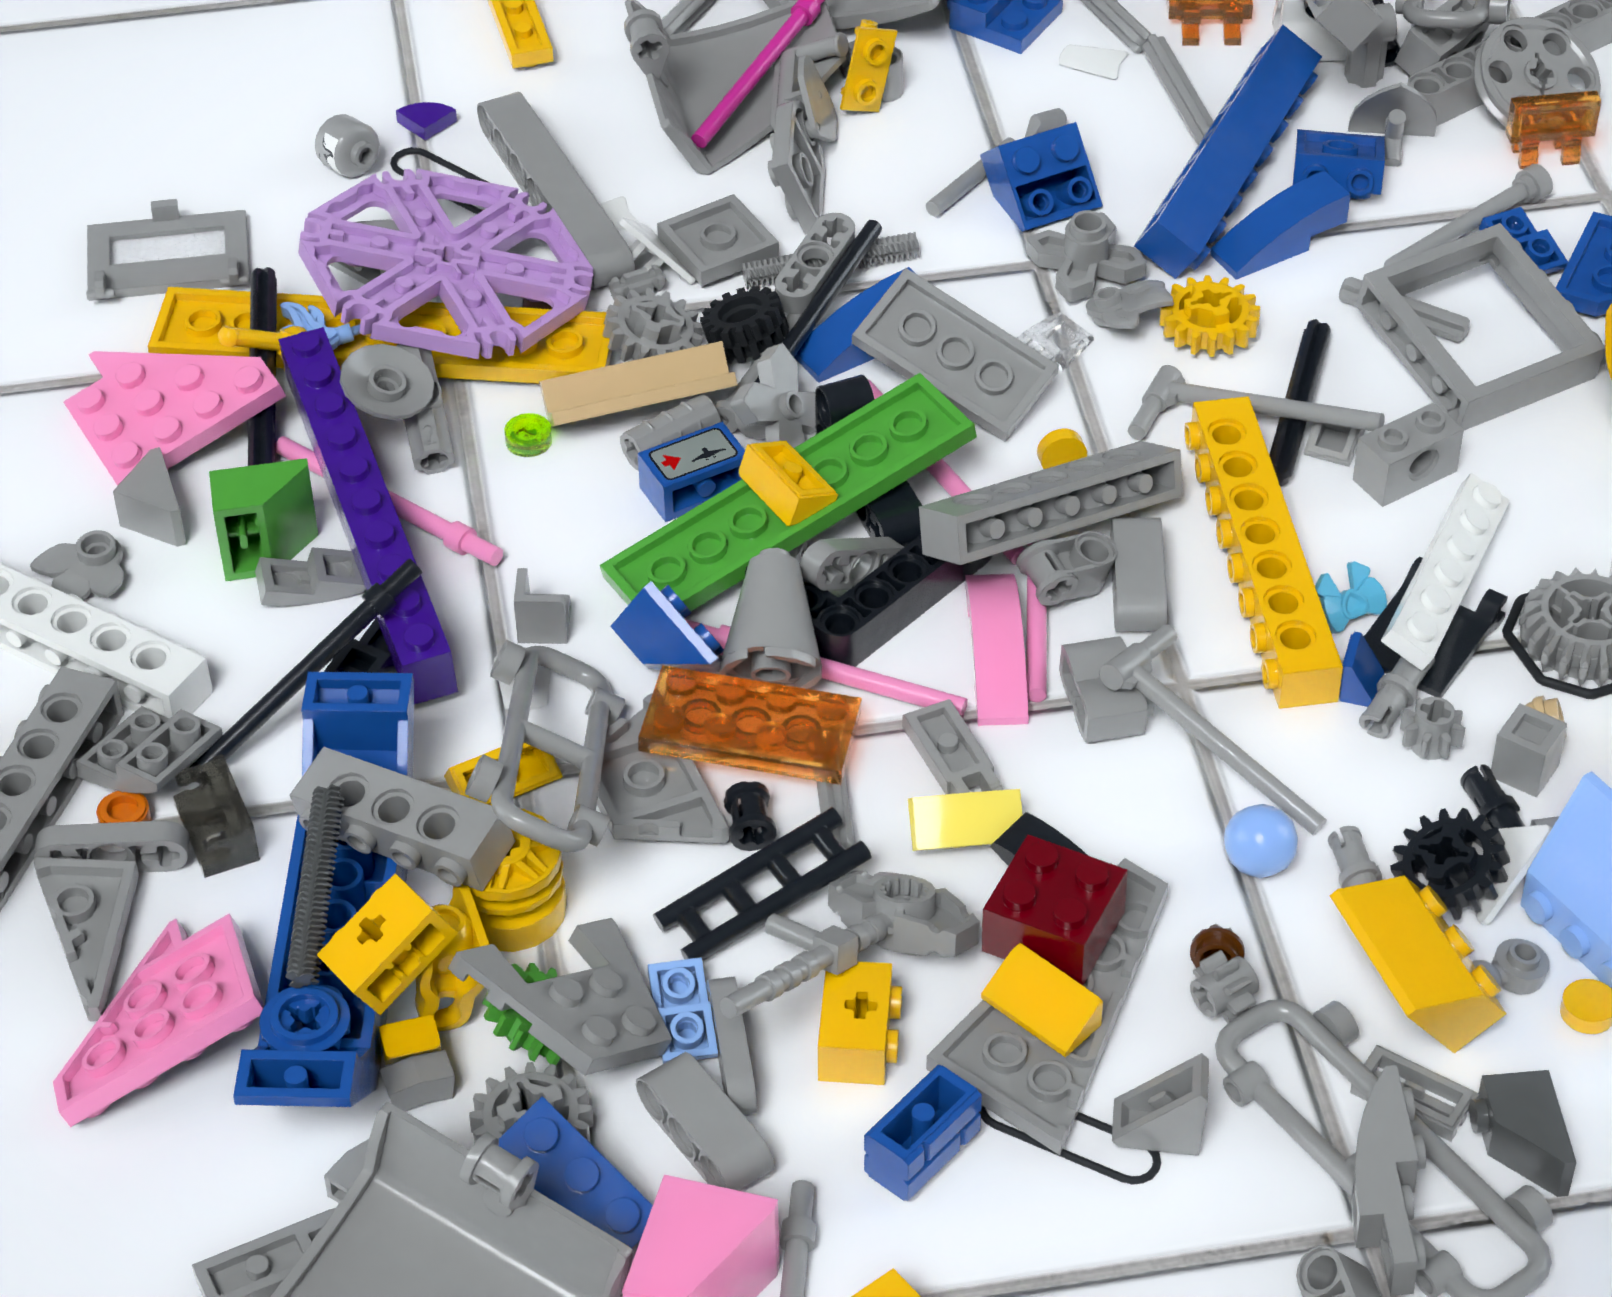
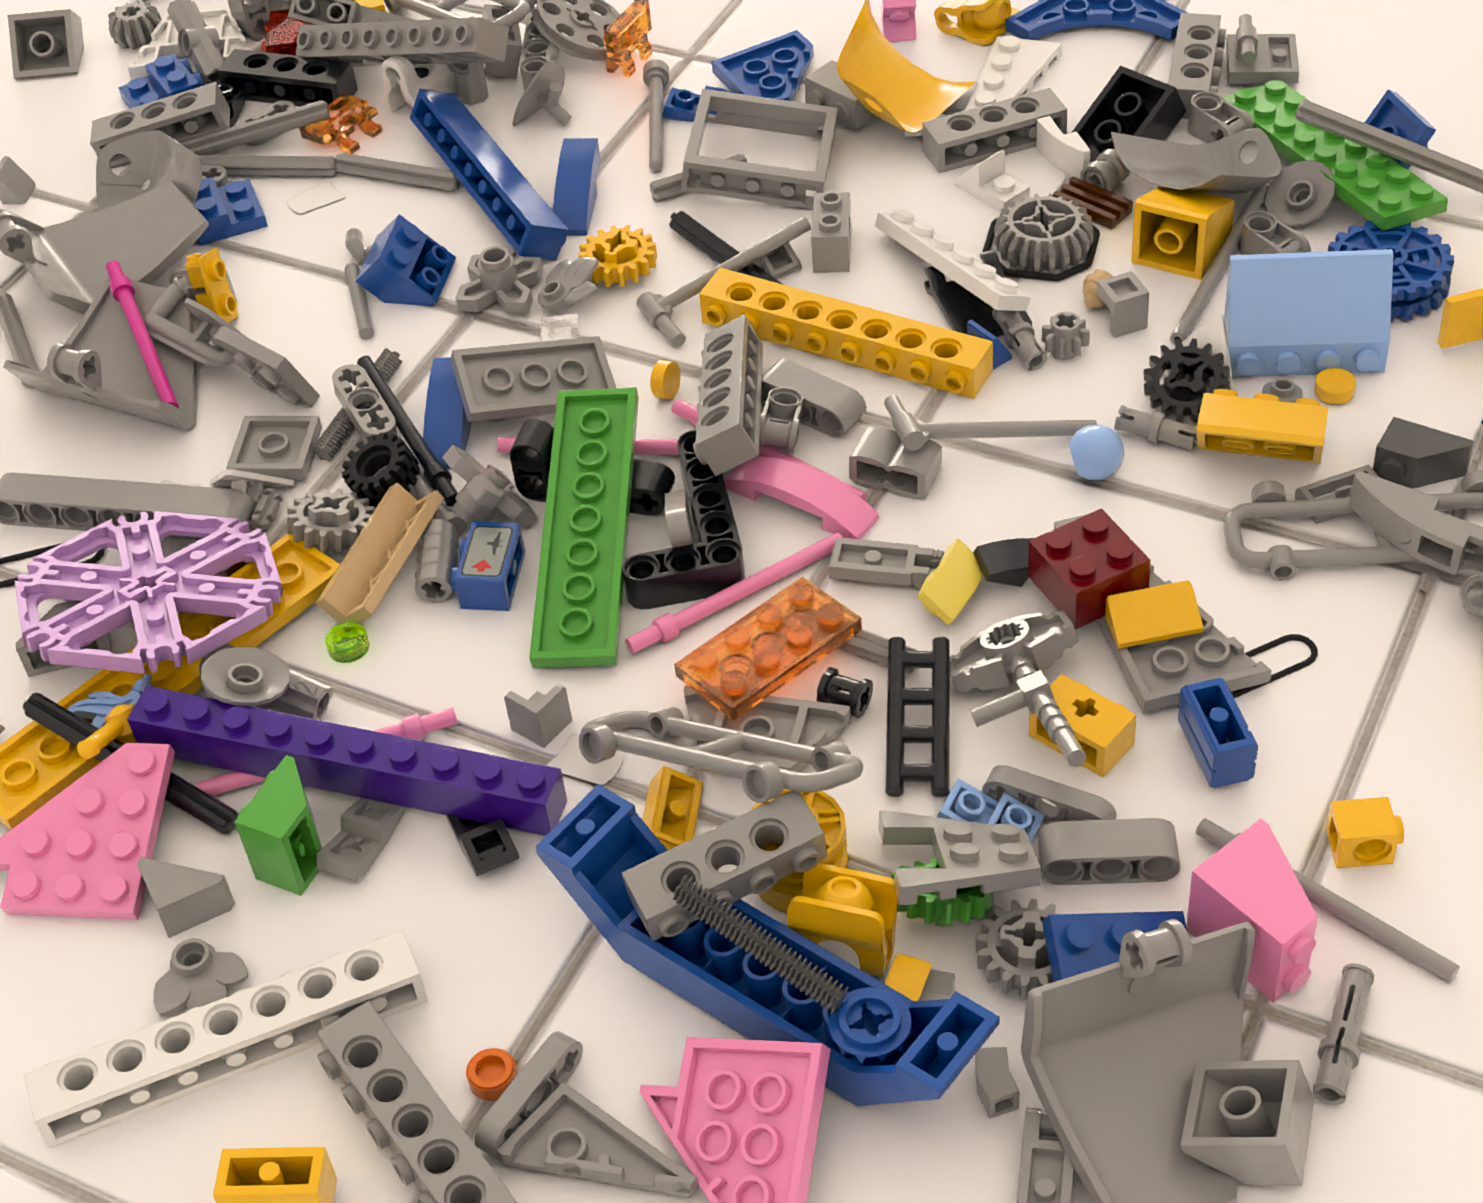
camera: 50 degrees left, 0 degrees up
(147, 751) = (453, 1021): light grey slope -> none
(216, 818) = (558, 1001): clear smoke hinge -> none
(377, 602) = (480, 784): black bar -> none
(387, 944) = (856, 896): yellow brick -> none
(660, 635) = (649, 643): blue slope -> none
(773, 625) = (703, 582): light grey cone -> none
(785, 481) = (576, 511): yellow slope -> none
(1165, 1111) = (1285, 603): light grey slope -> none
(1214, 939) = (1165, 520): reddish brown plate -> none
(1224, 986) = (1202, 528): light grey gear -> none
(1350, 159) = (543, 136): blue plate -> none
(1362, 598) = (926, 308): medium azure piece -> none
(1490, 798) = (1142, 342): black pin -> none

